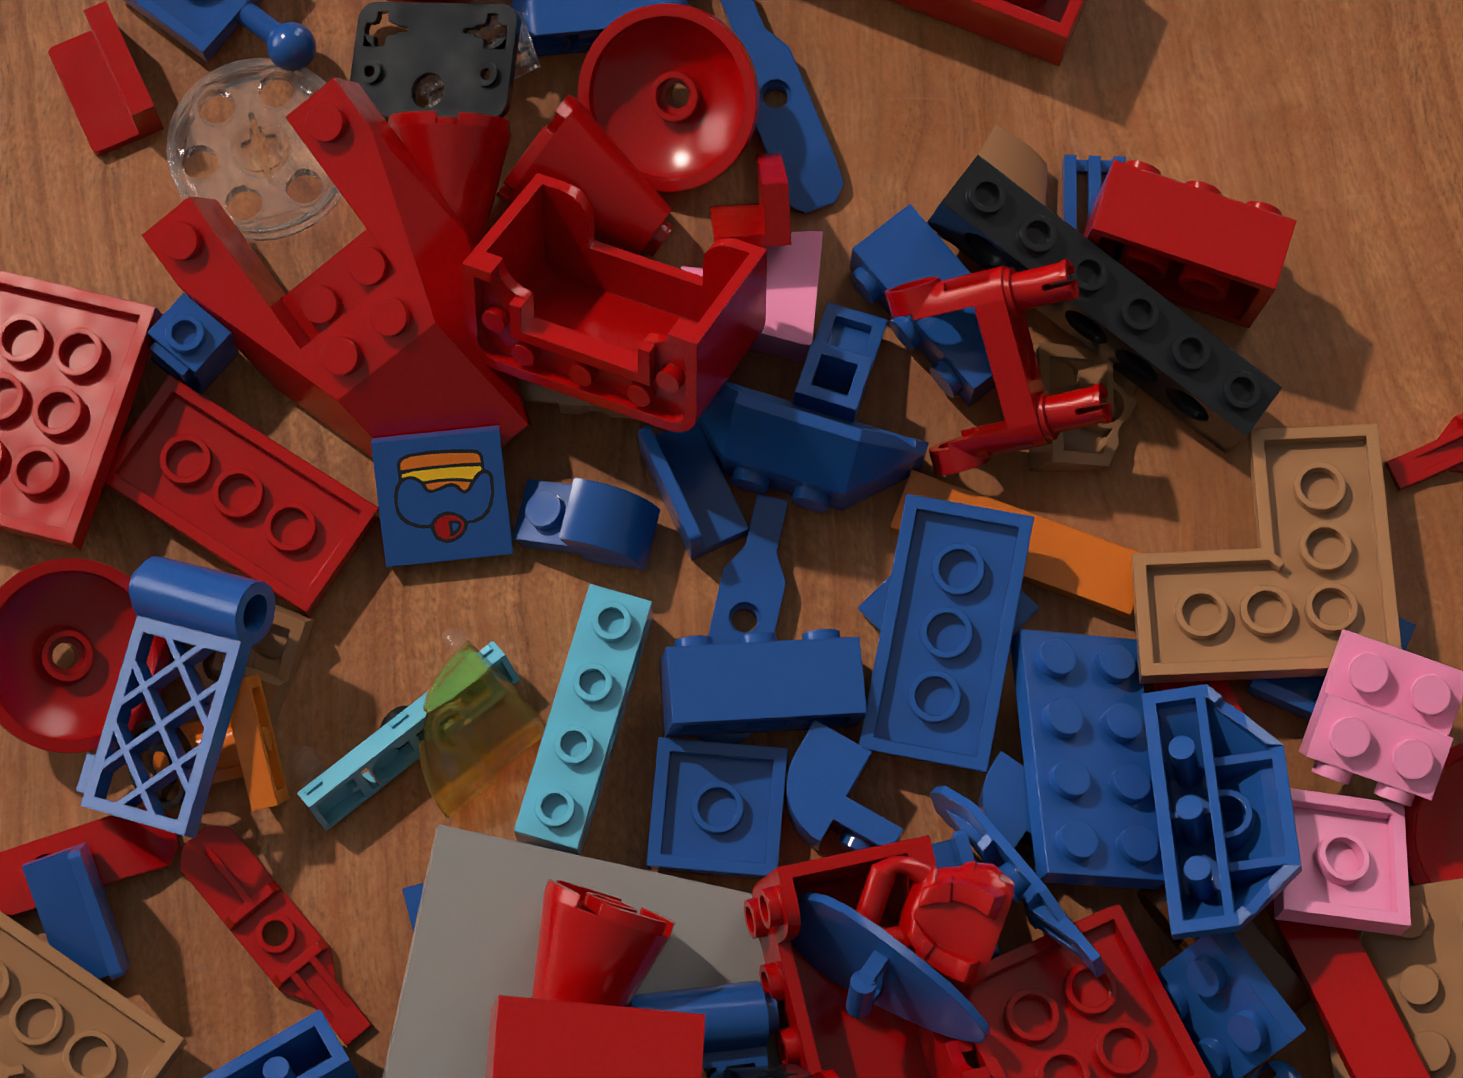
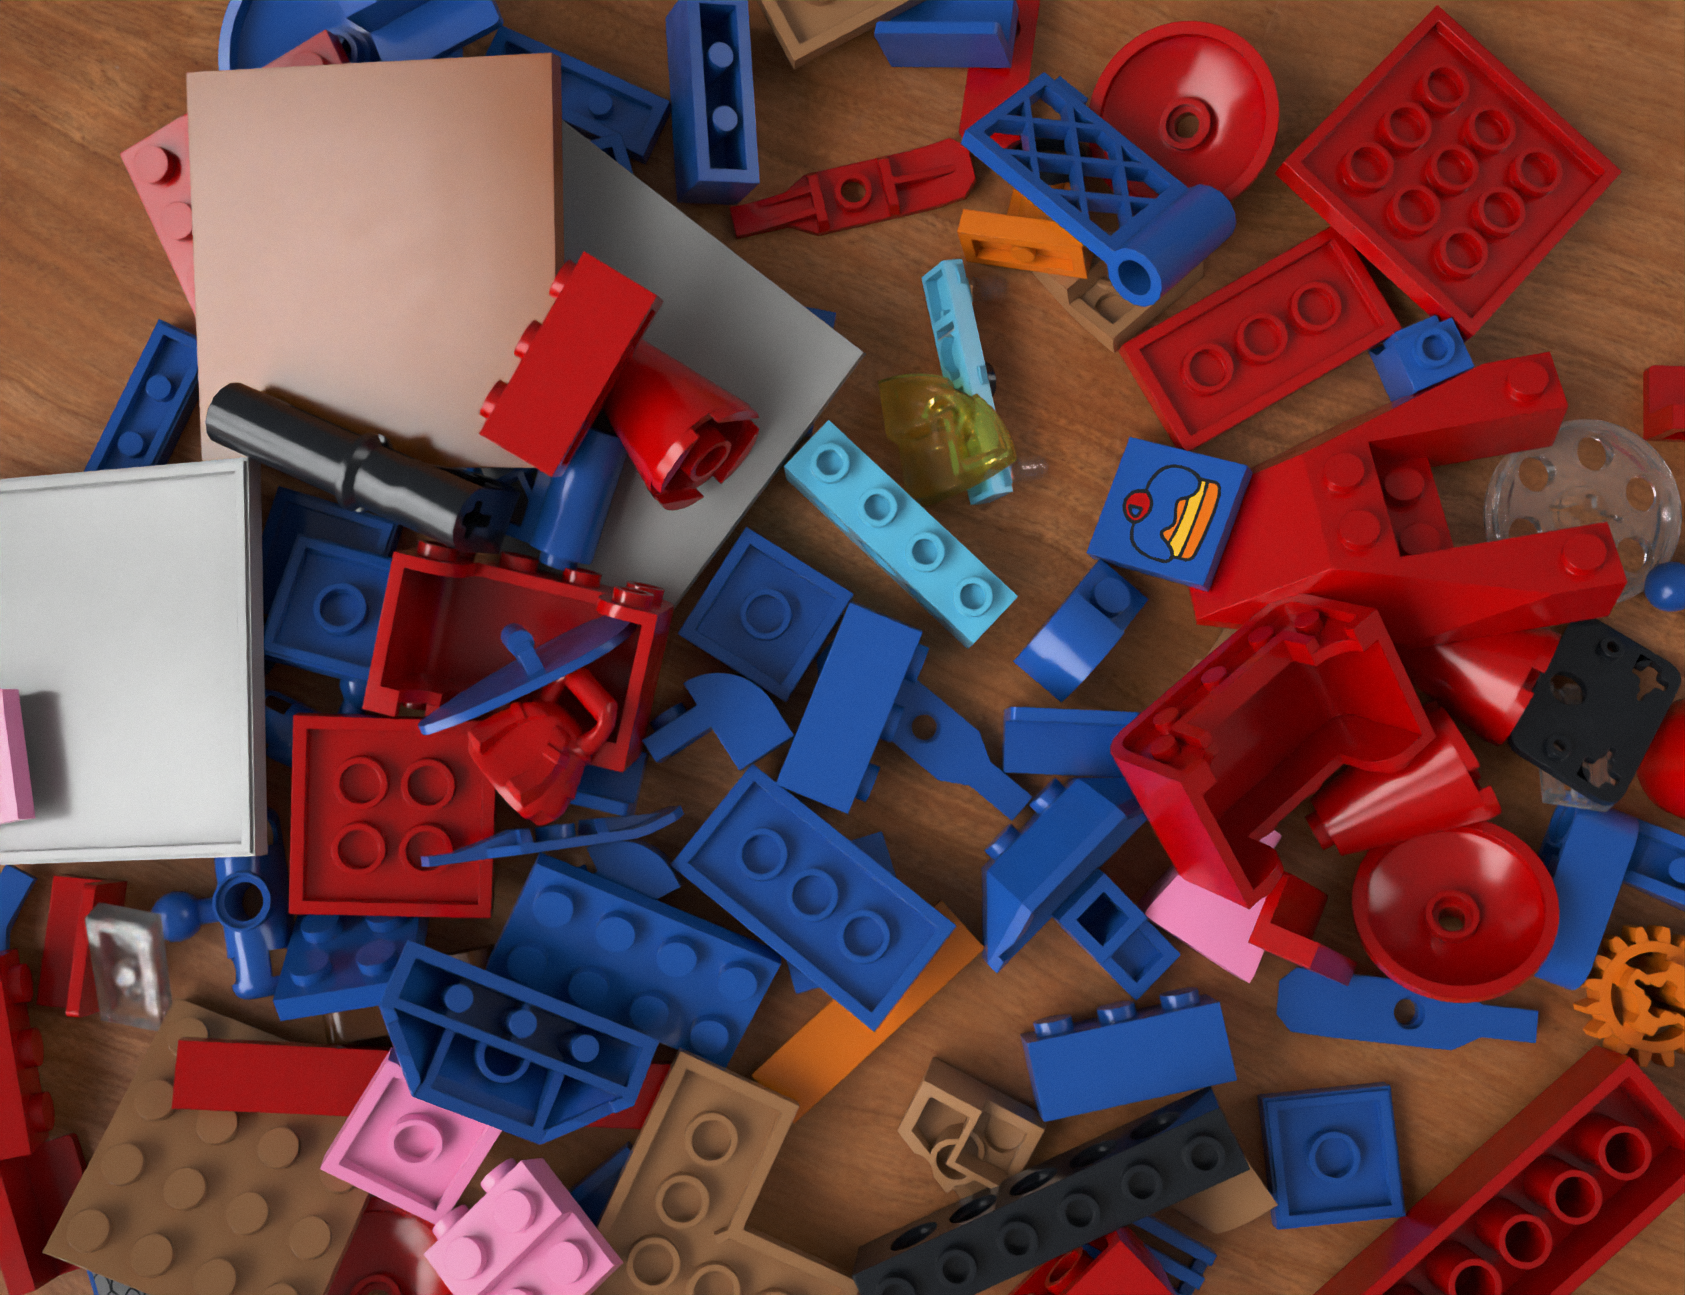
camera: 115 degrees right, 10 degrees up
(929, 102) = (1331, 1155): none -> blue tile
(1000, 306) = (1089, 1108): red connector -> none

